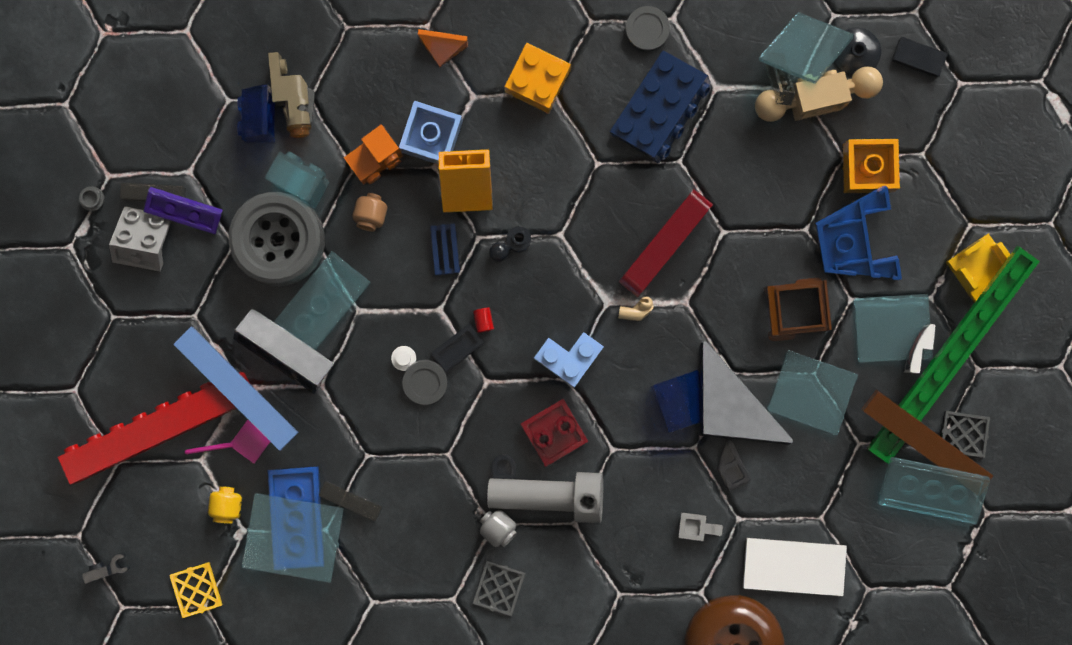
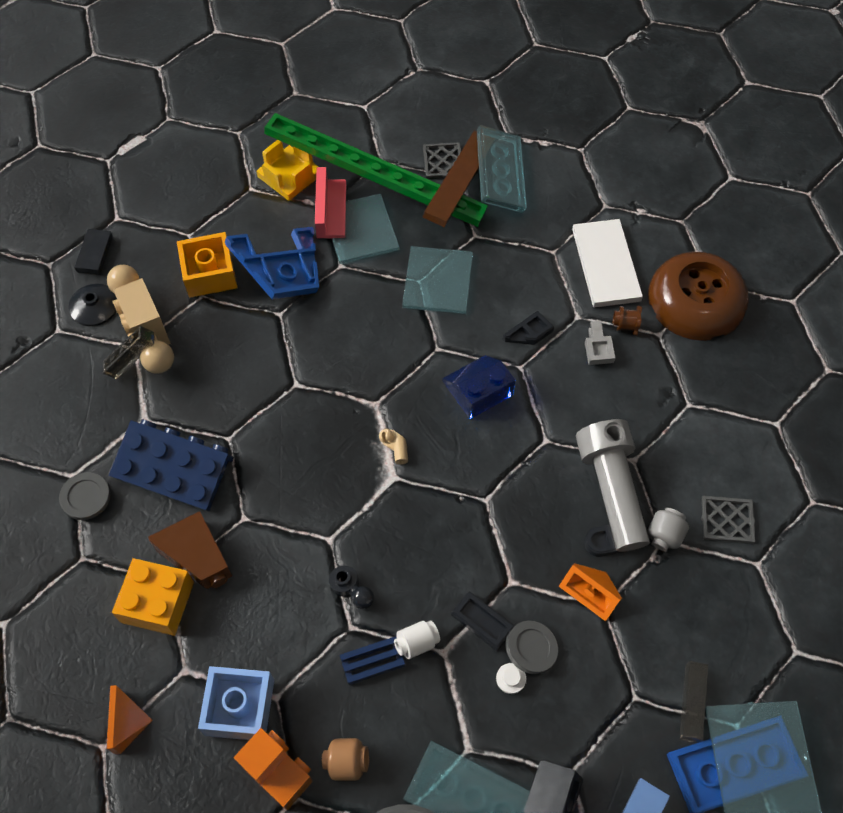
camera: 100 degrees left, 25 degrees down
(451, 288) = (416, 639): none -> white brick
(462, 448) = (592, 589): none -> orange slope
(465, 180) = (287, 644): light orange brick -> none
(483, 320) = (444, 597): red hinge -> none
(554, 432) = (546, 496): dark red plate -> none
(569, 365) = (468, 493): light blue brick -> none
(572, 116) = (193, 549): none -> reddish brown slope
(665, 243) = (319, 430): dark red beam -> none
(719, 564) = (628, 319): none -> reddish brown brick
(730, 407) = (470, 341): tile -> none
(777, 331) = (355, 279): reddish brown piece -> none
(806, 47) = (92, 335): clear light blue piece -> none
(923, 302) = (330, 206): none -> coral panel
(923, 341) = (367, 198): white slope -> none

